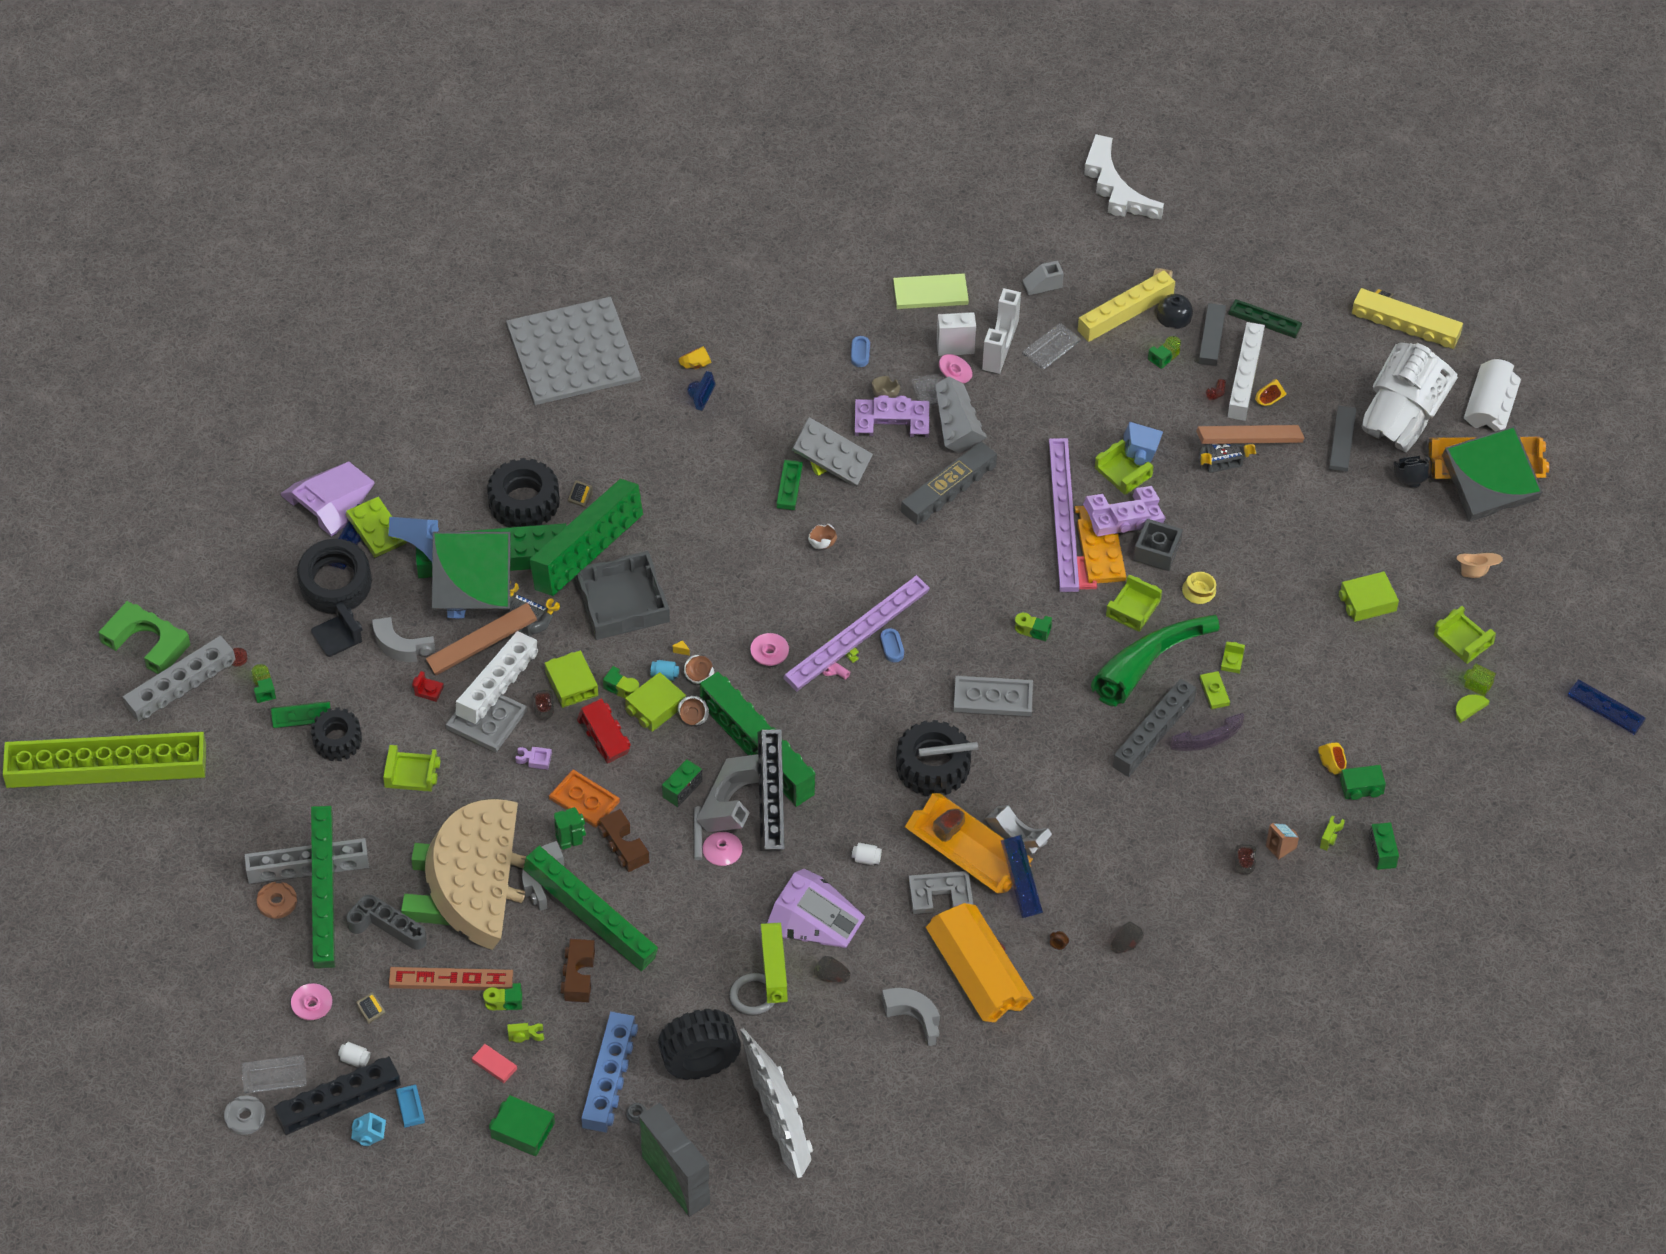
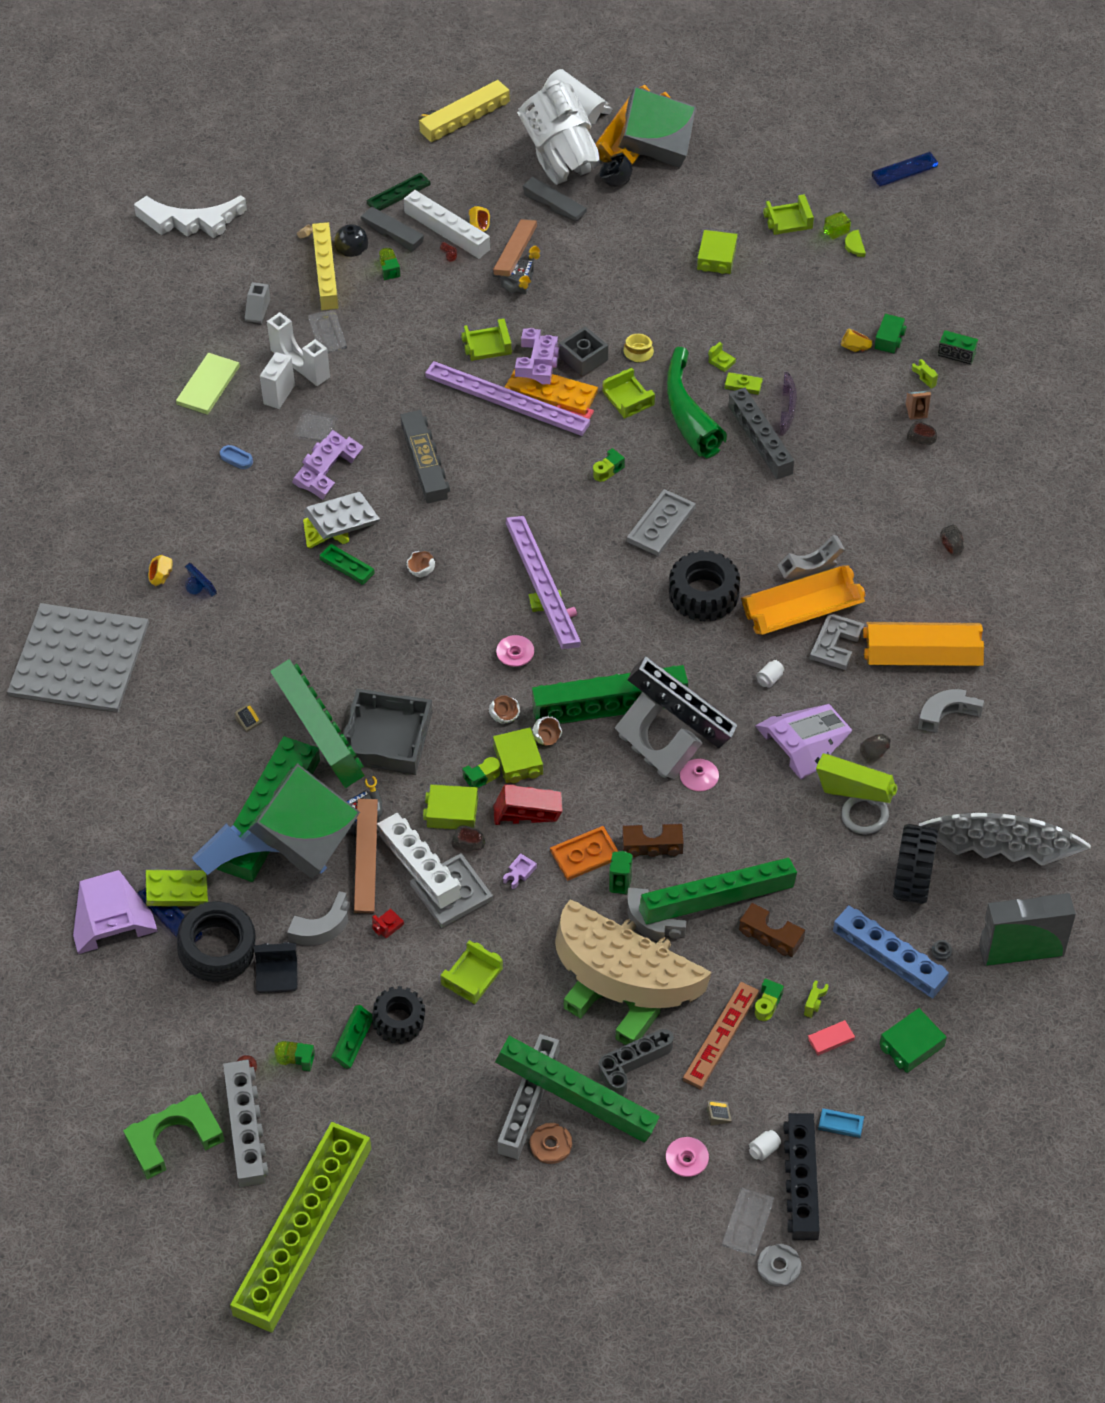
camera: 60 degrees left, 0 degrees up
(368, 1129) = (856, 1164): medium azure brick -> none
(517, 475) = (227, 776): black tyre -> none
(667, 668) = (484, 736): medium azure brick -> none
(681, 648) = (471, 713): yellow piece -> none
(682, 783) = (618, 771): green brick -> none
(697, 835) = (674, 785): light grey bar -> none
(884, 386) = (293, 455): dark tan hair -> none
(892, 645) = (563, 567): medium blue tile -> none
(948, 749) = (714, 564): light grey bar -> none
(948, 824) = (778, 604): clear smoke rock -> none
(955, 367) = (307, 400): bright pink dish -> none
(957, 416) = (367, 417): light grey wedge -> none
(1021, 876) = (862, 575): clear blue plate -> none
(1058, 940) = (928, 584): reddish brown plate -> none
(1141, 442) = (475, 316): medium blue torso -> none
(1477, 564) = (729, 175): light nougat piece -> none

